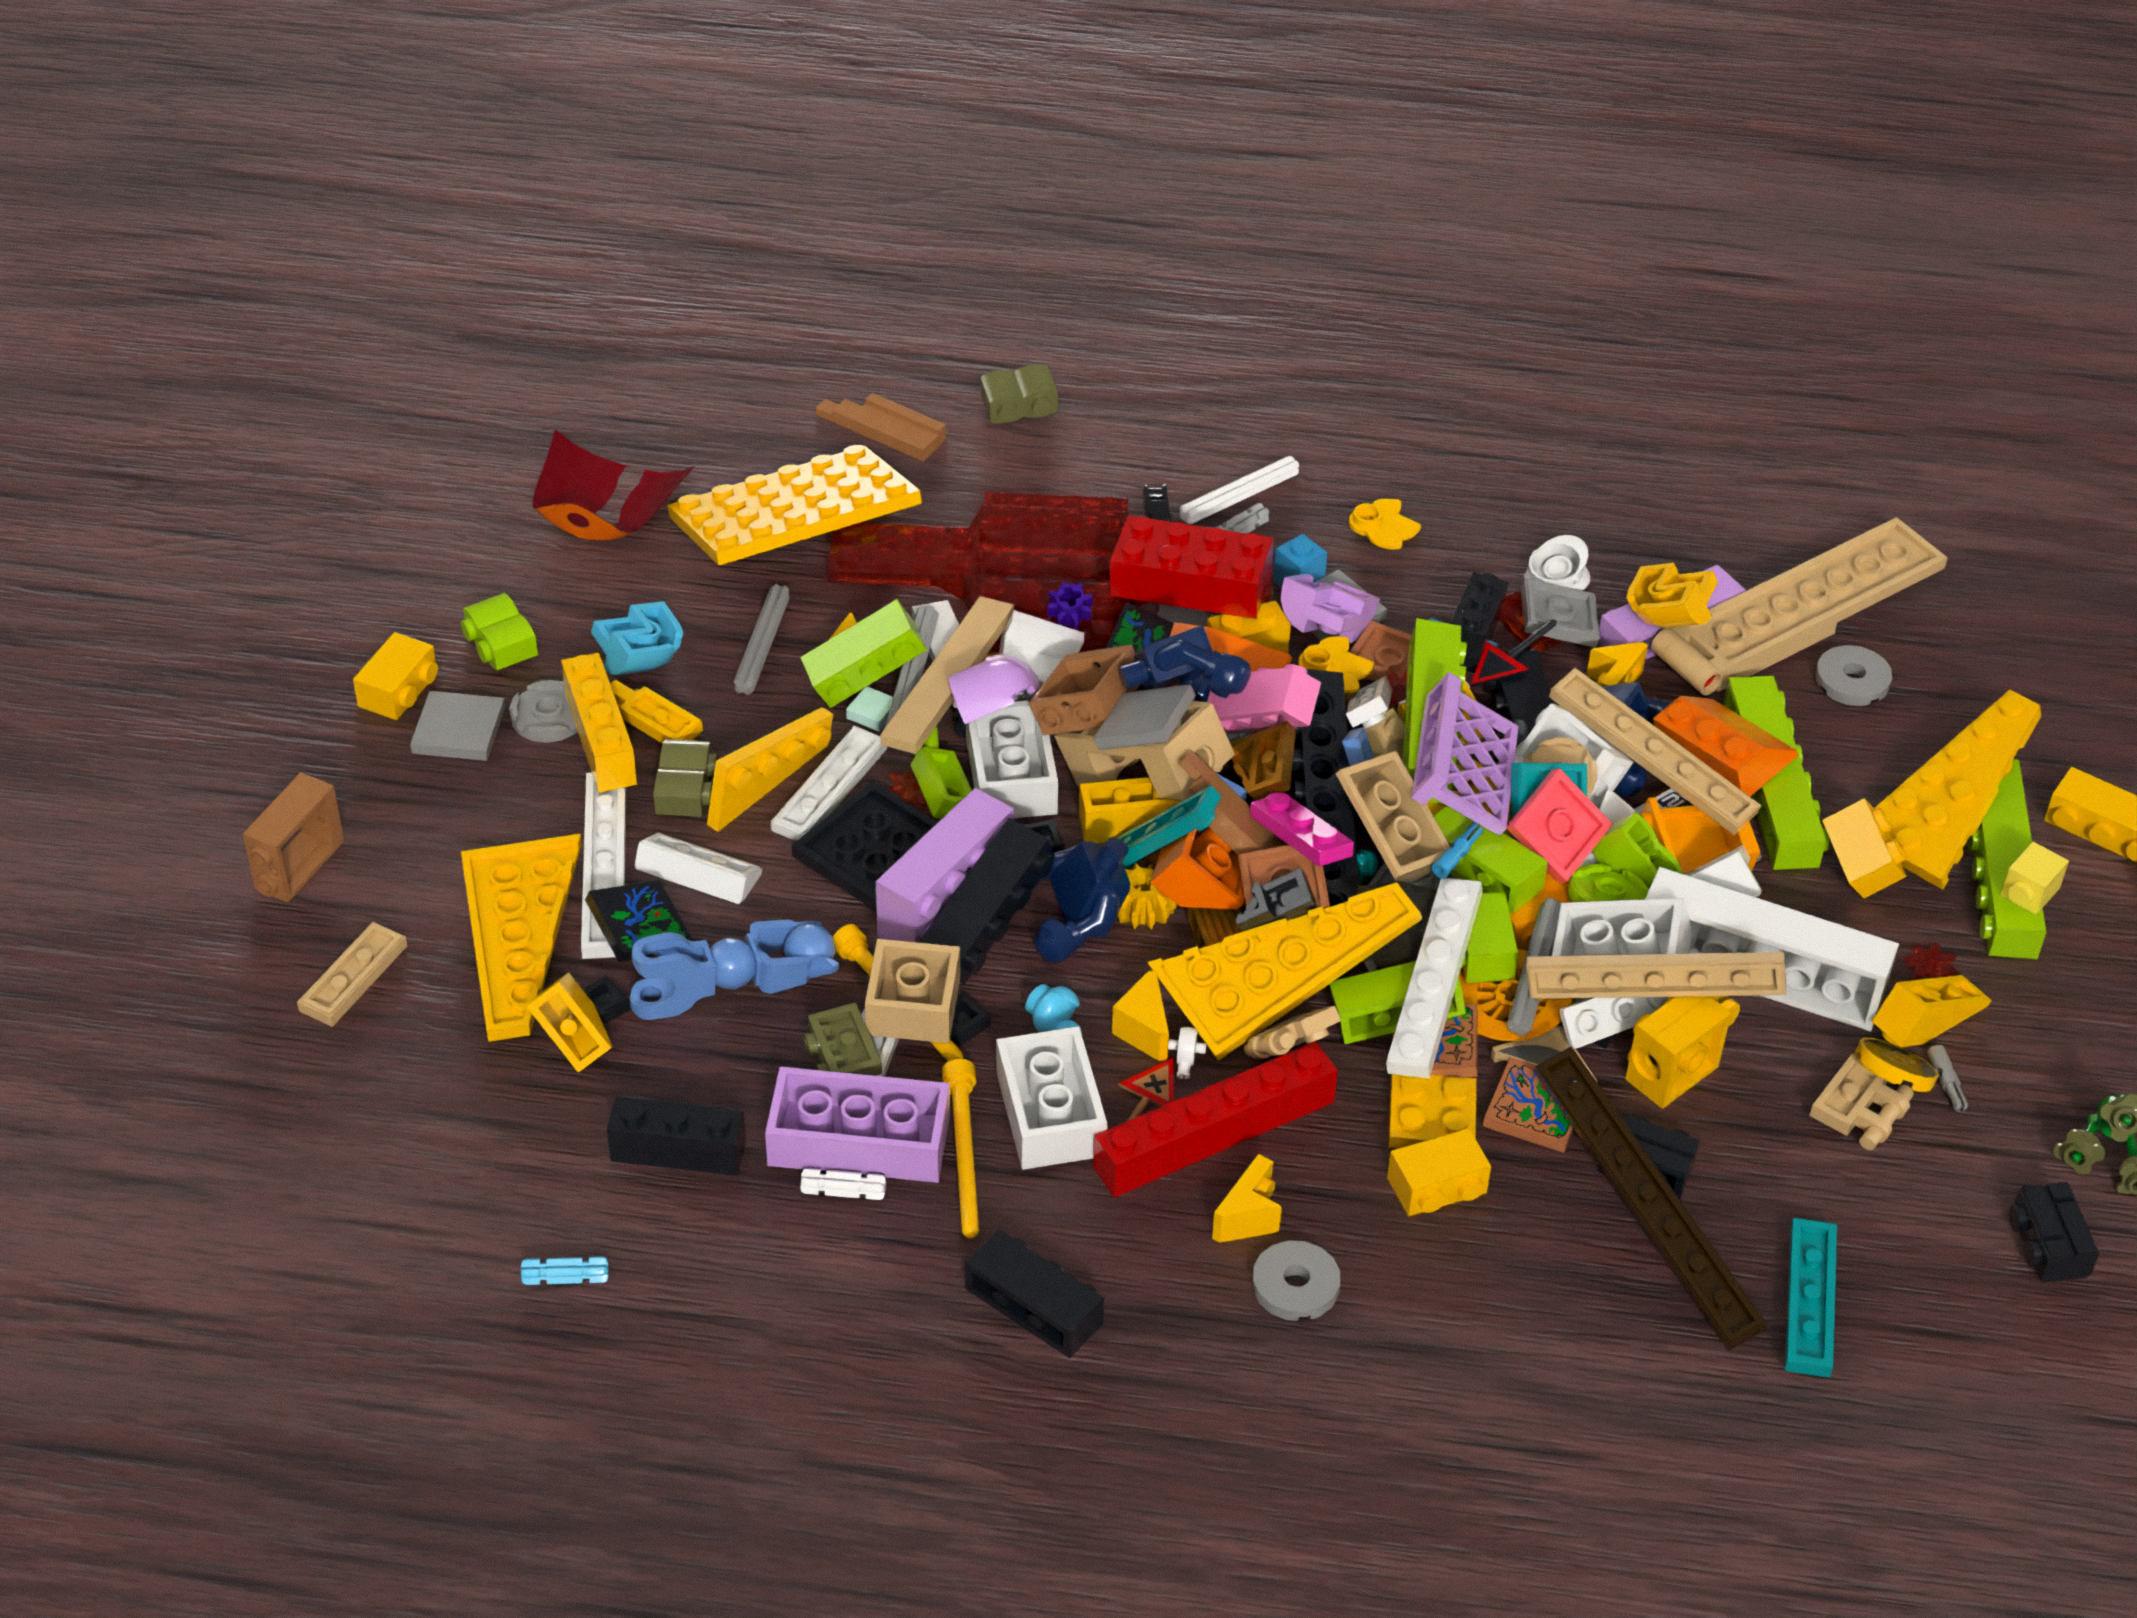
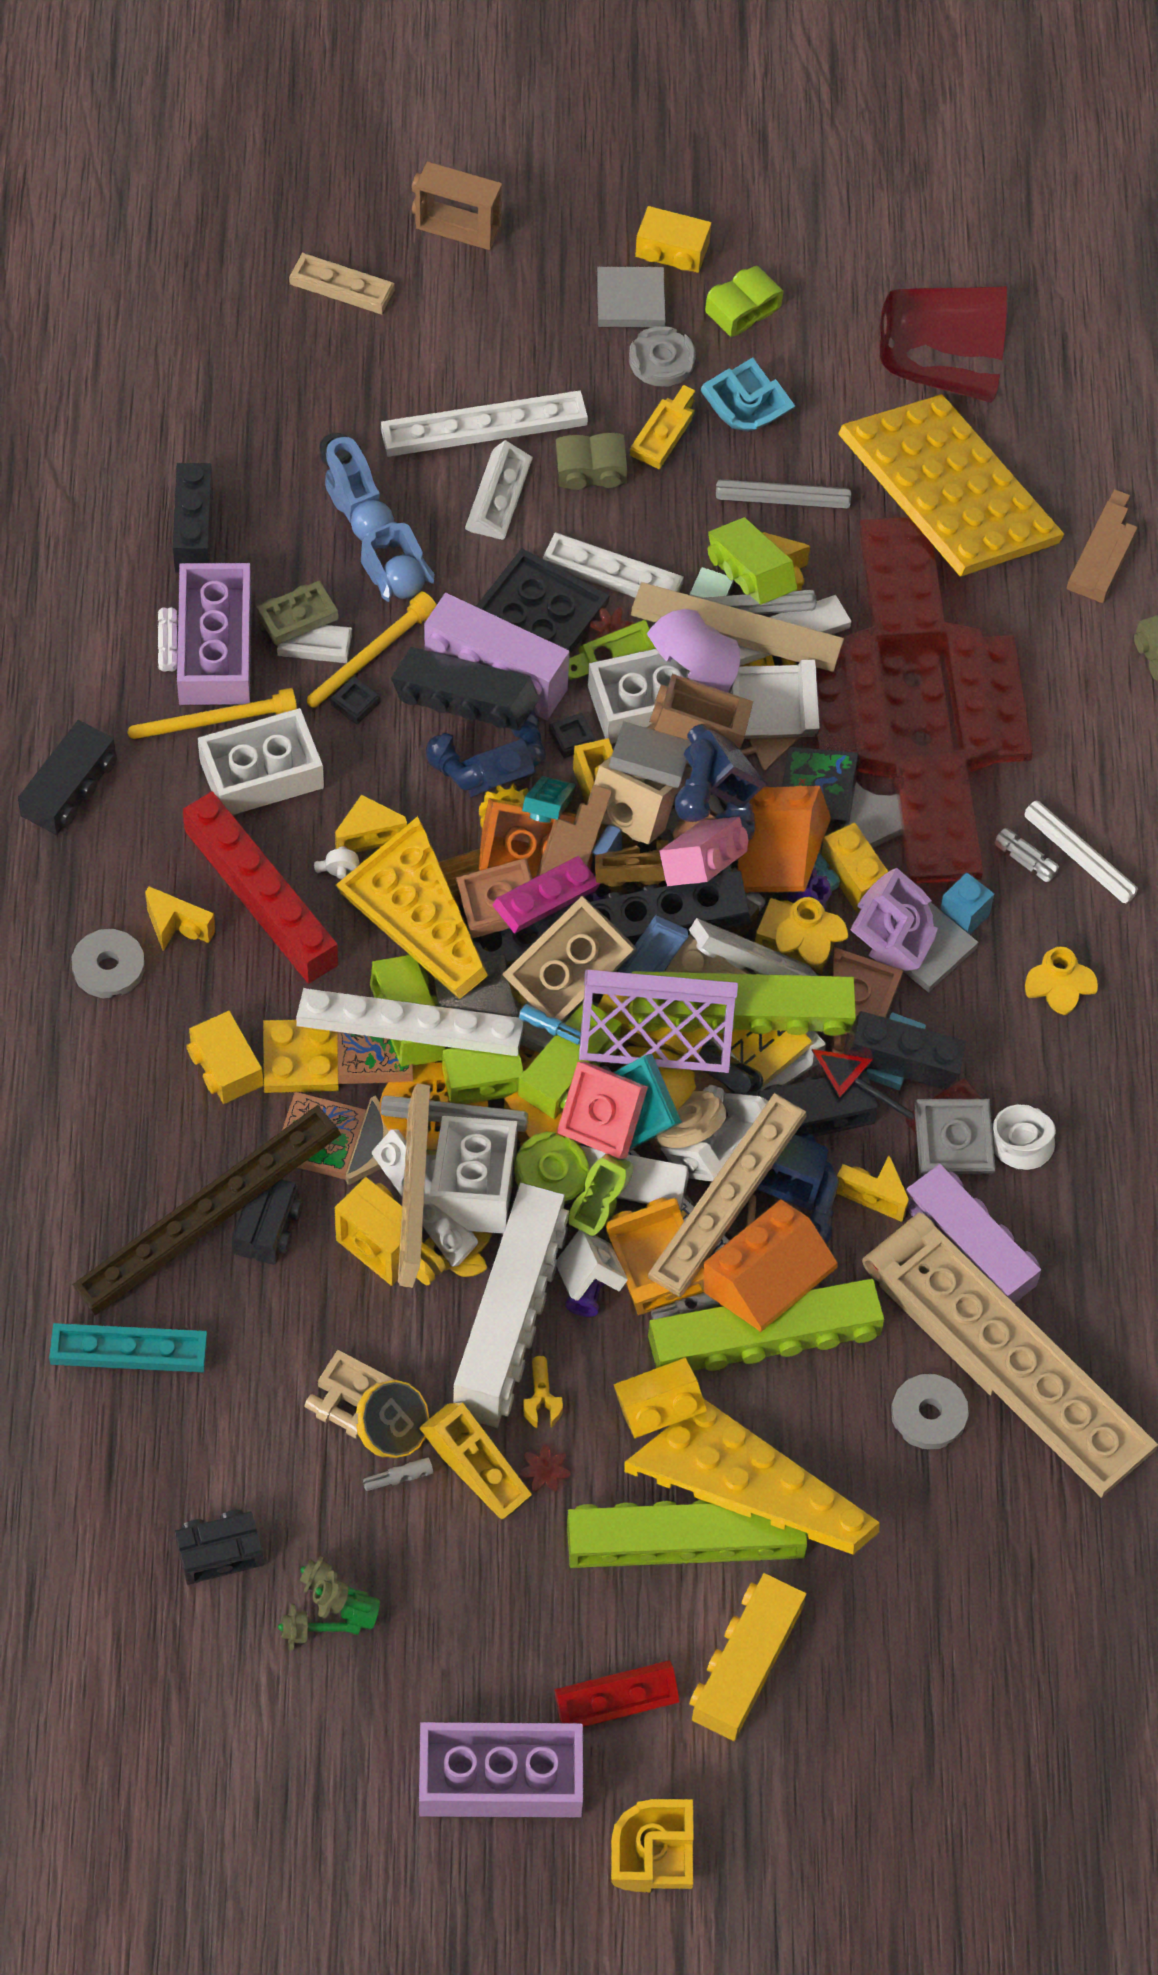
camera: 80 degrees right, 15 degrees up
(515, 918) = (424, 372): yellow wing -> none
(564, 1270) = (62, 472): medium azure axle -> none
(571, 1021) = (299, 425): yellow slope -> none
(599, 722) = (626, 381): yellow brick -> none
(634, 913) = (414, 454): black tile -> none
(763, 764) = (608, 512): yellow wing -> none
(912, 991) = (349, 645): tan brick -> none
(1052, 1008) = (364, 759): medium azure animal -> none
(1070, 595) = (840, 707): dark purple gear -> none
(1152, 1085) = (301, 848): piece -> none
(1156, 503) = (1027, 783): black bar -> none
(1191, 566) = (898, 792): red brick -> none
(1278, 900) = (468, 888): black slope -> none
(1291, 1032) = (353, 931): tan plate -> none
(1669, 598) = (949, 1209): yellow brick -> none
(2034, 878) = (621, 1533): light yellow brick -> none

